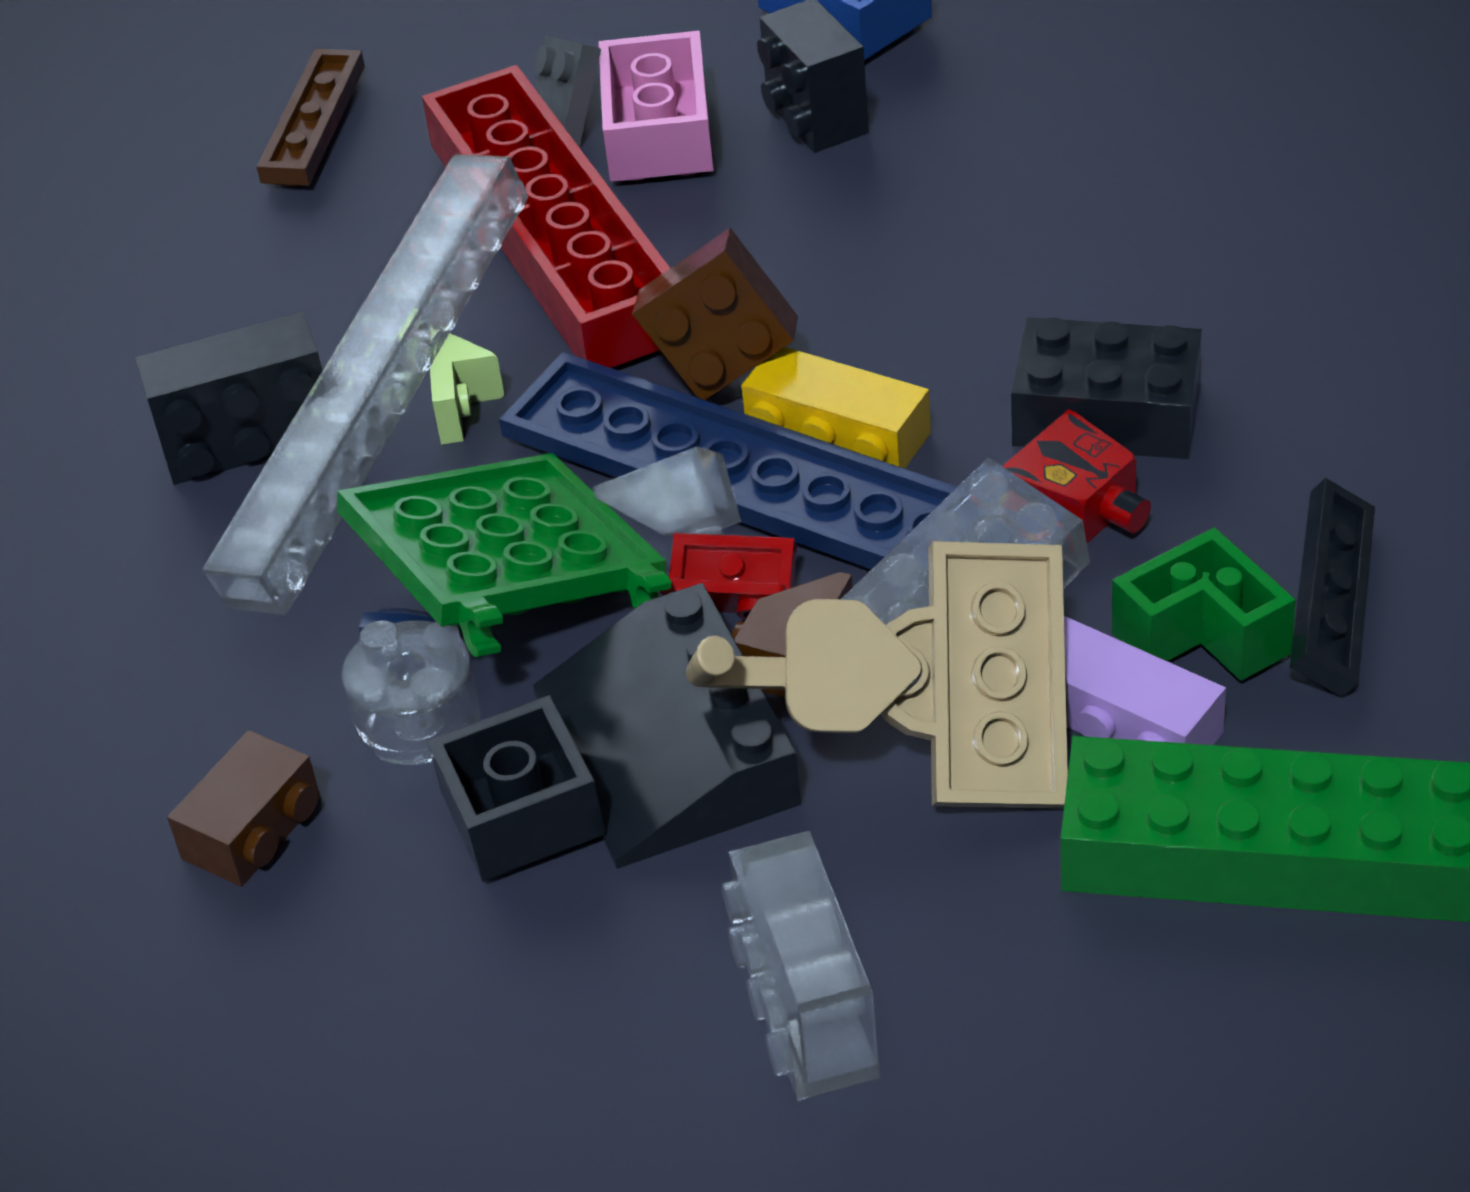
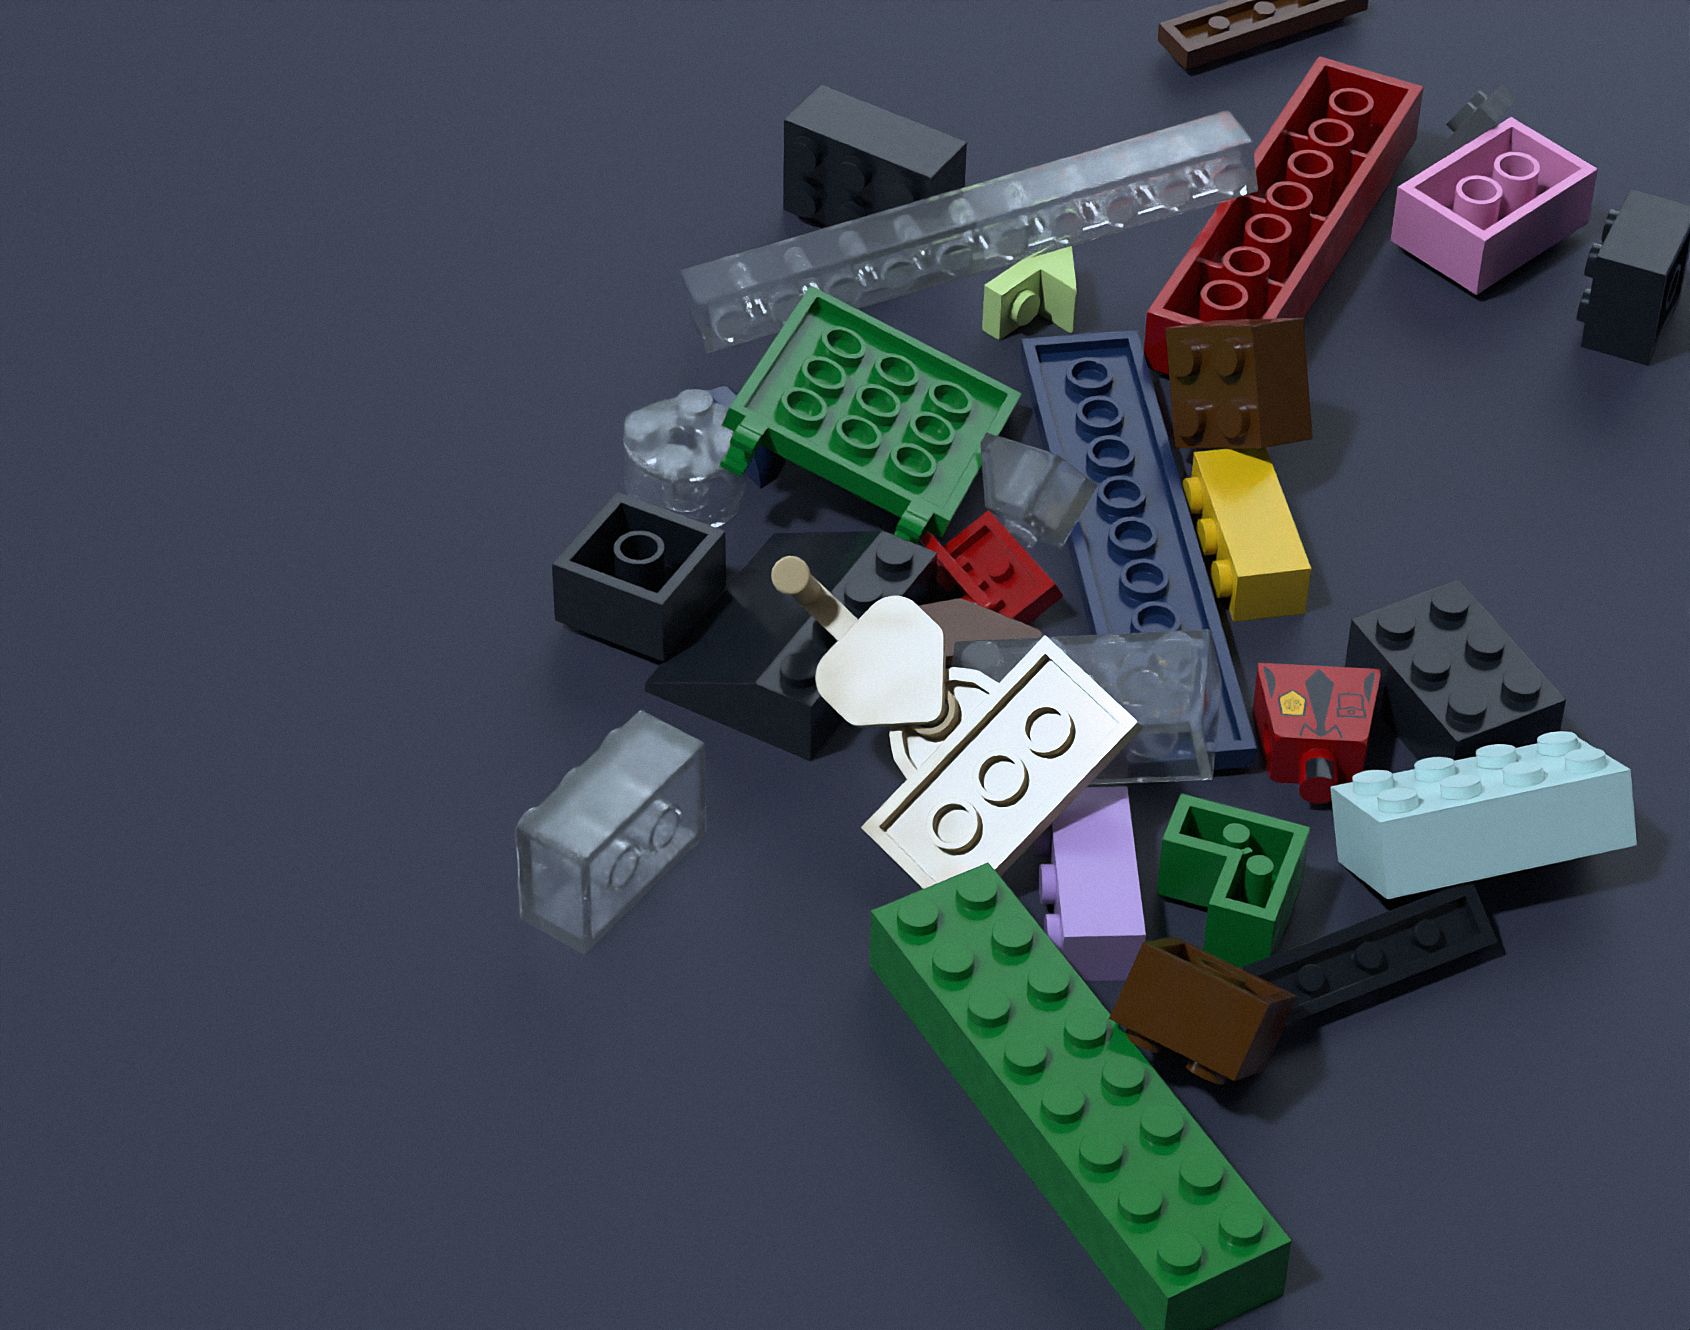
camera: 45 degrees right, 0 degrees up
(245, 808) = (492, 446): brick -> none
(1271, 436) = (1482, 814): none -> light aqua brick
(1345, 694) = (1201, 1010): none -> reddish brown brick

